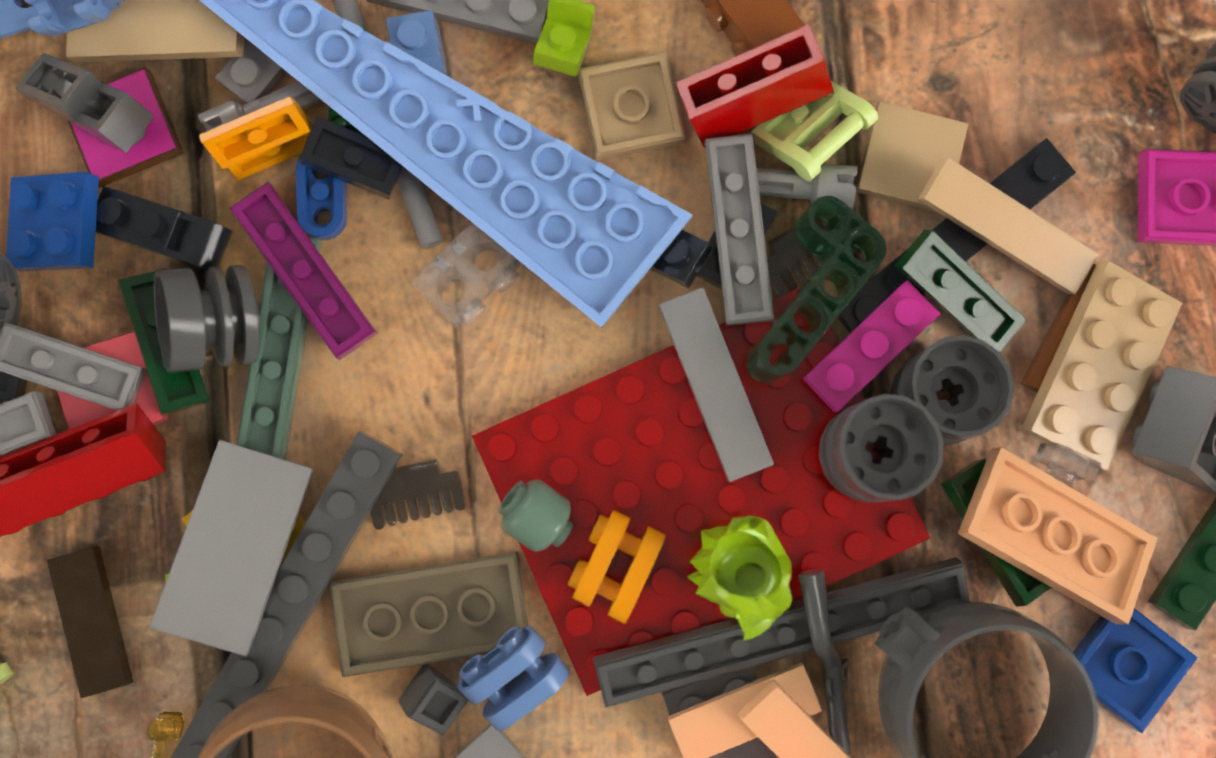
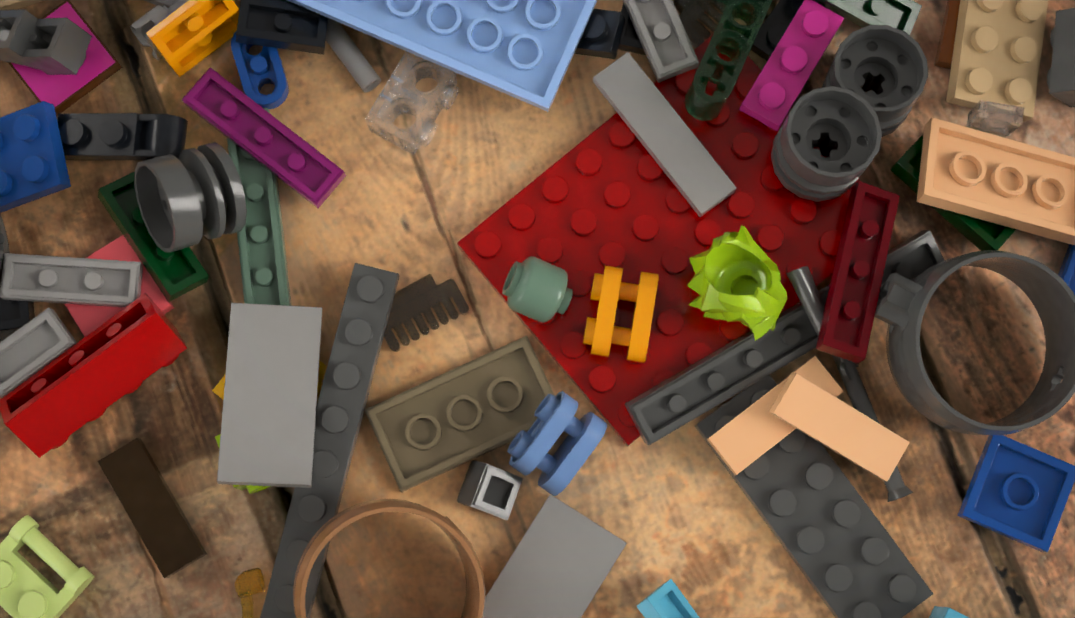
camera: 15 degrees left, 5 degrees down
(873, 594) = (858, 272): none -> dark red plate

